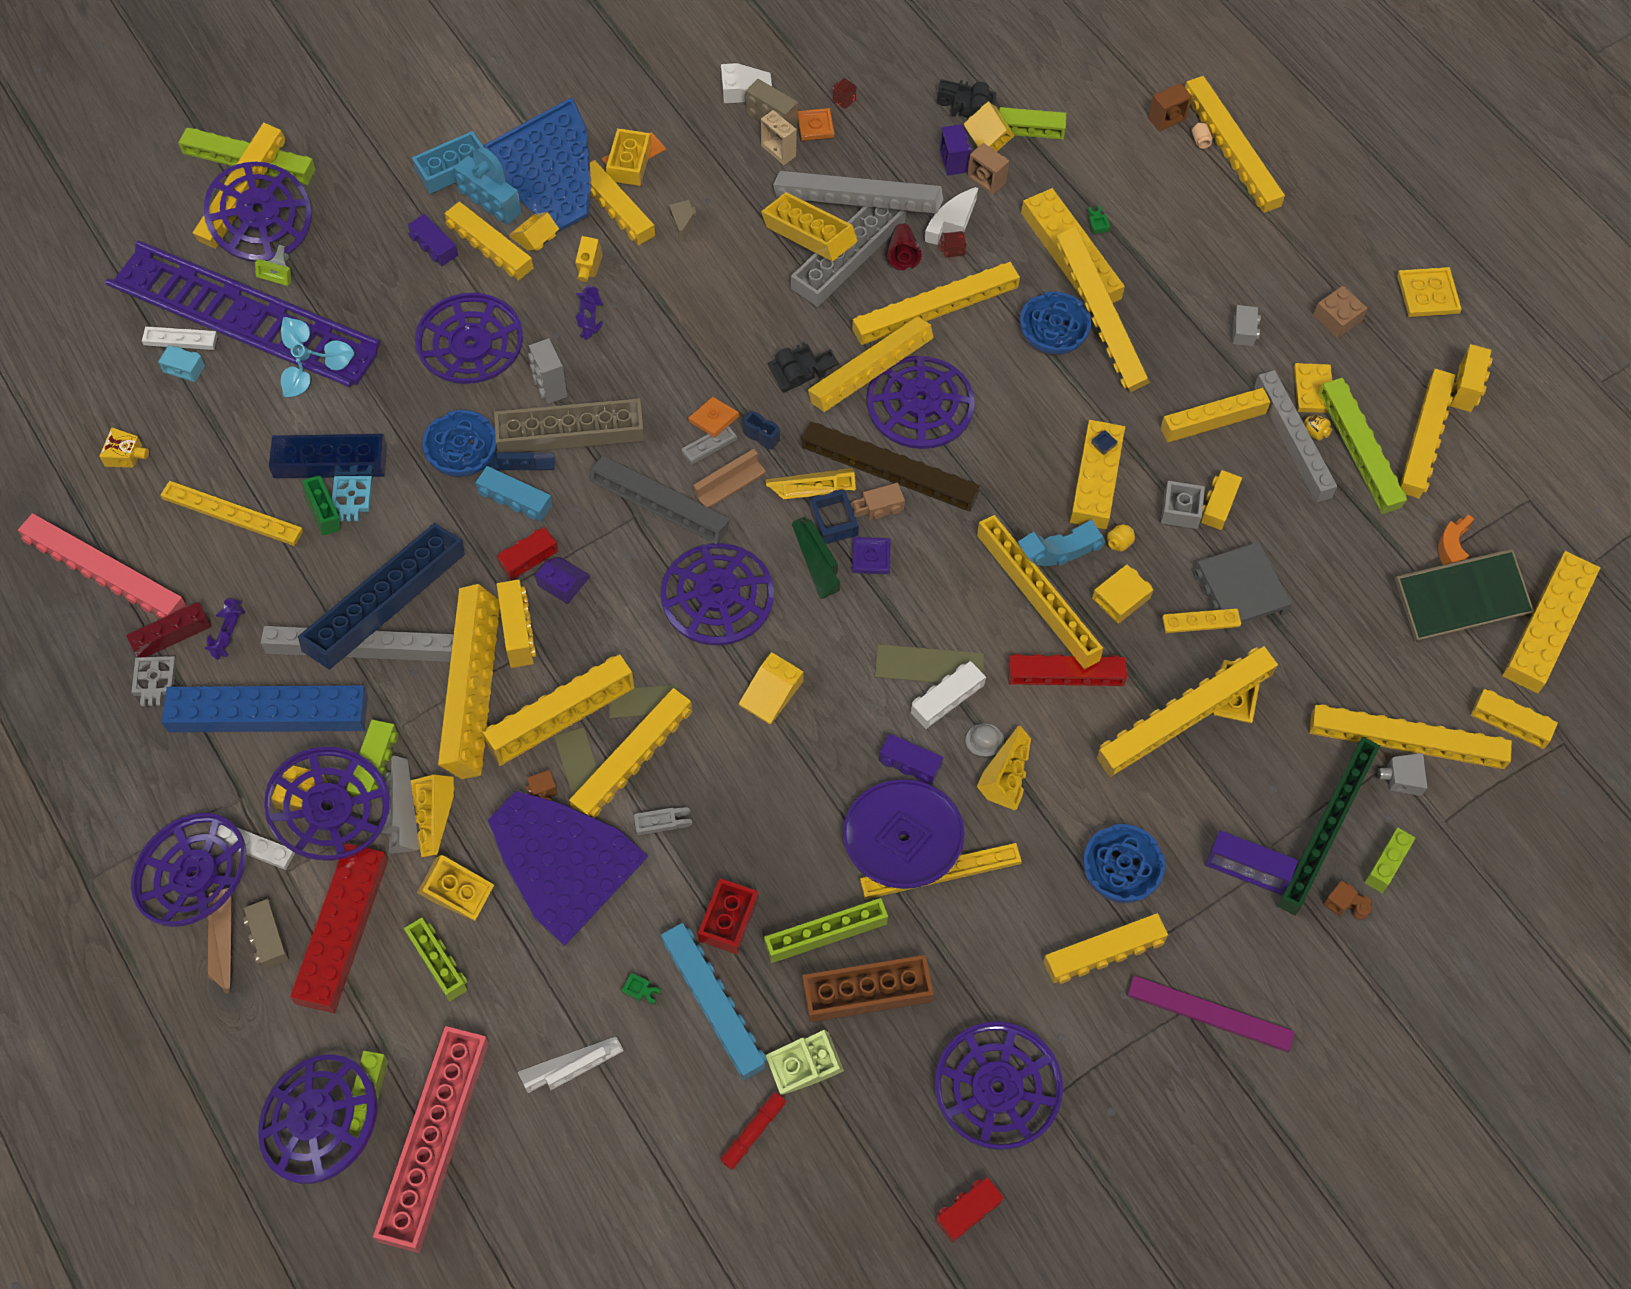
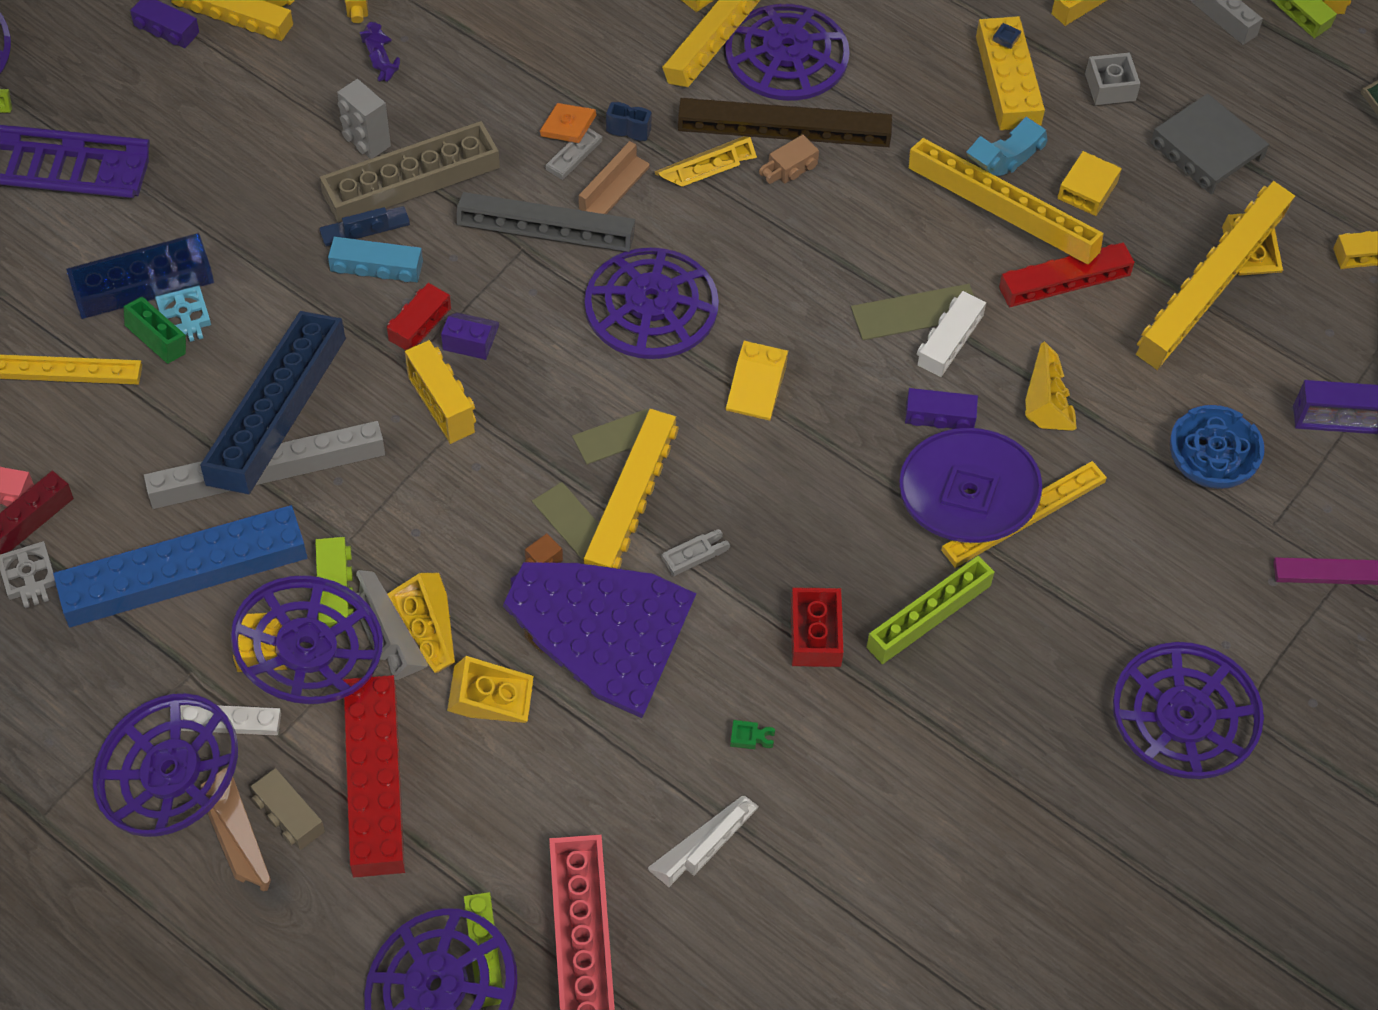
camera: 20 degrees left, 5 degrees down
(230, 613) = (94, 476): dark purple piece -> none
(294, 334) = (48, 156): medium azure plant -> none
(435, 959) = (503, 773): lime brick -> none
(453, 434) = (289, 205): blue brick -> none
(466, 332) = (251, 105): dark purple dish -> none
(469, 682) = (415, 467): yellow brick -> none
(559, 709) = (529, 468): yellow brick -> none
(713, 1002) = (838, 722): dark azure brick -> none
(753, 1130) = (942, 844): red piece -> none
(800, 365) = (642, 46): black plate -> none
(804, 1062) = (967, 754): yellowish green slope -> none
(817, 557) = (747, 234): dark green wedge -> none
(836, 532) = (758, 203): dark blue window -> none
(867, 988) = (1002, 655): dark orange brick -> none
(871, 555) = (804, 217): dark purple plate -> none
(969, 1209) = (1212, 848): red brick -> none
(984, 740) = (1009, 369): light grey hat -> none
(1105, 948) = (1234, 539): yellow brick -> none
(1121, 537) = (1063, 127): yellow head -> none
(1201, 620) = (1185, 185): yellow bracket -> none
(1220, 499) = (1149, 63): yellow brick -> none

